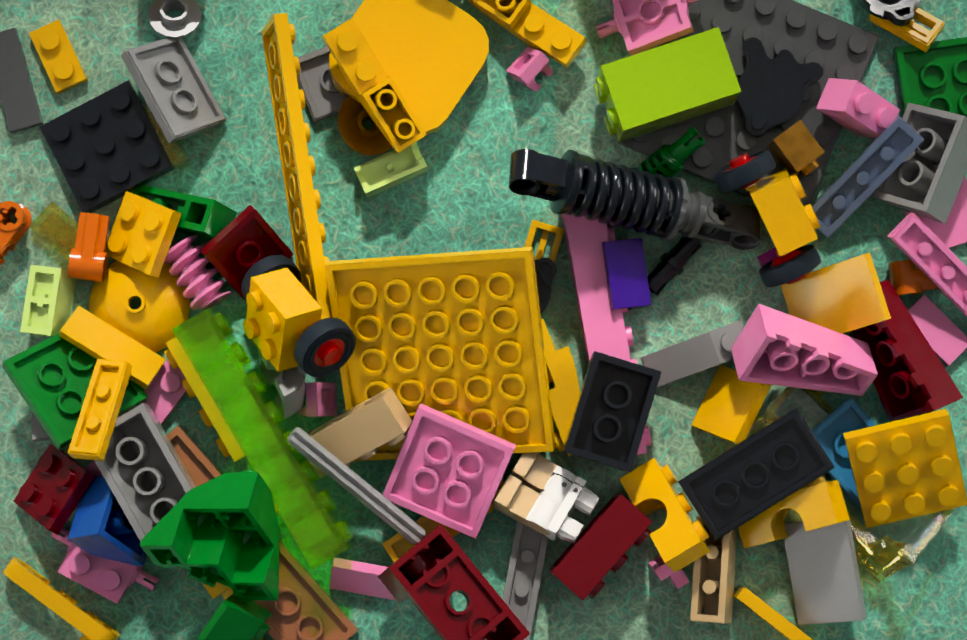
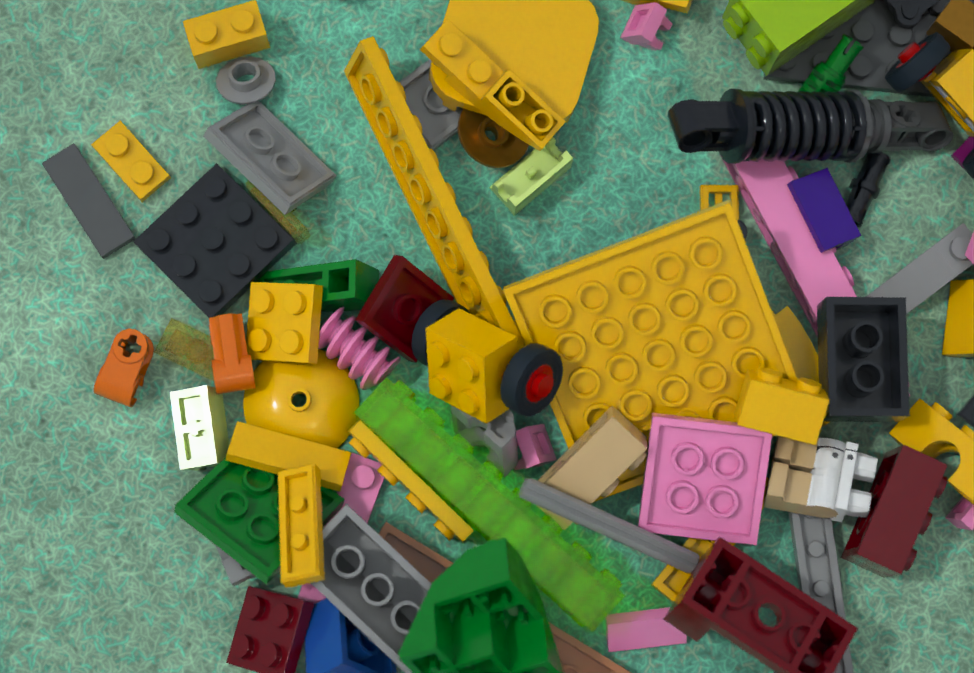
camera: 20 degrees left, 5 degrees down
(527, 431) = (782, 405): none -> yellow brick

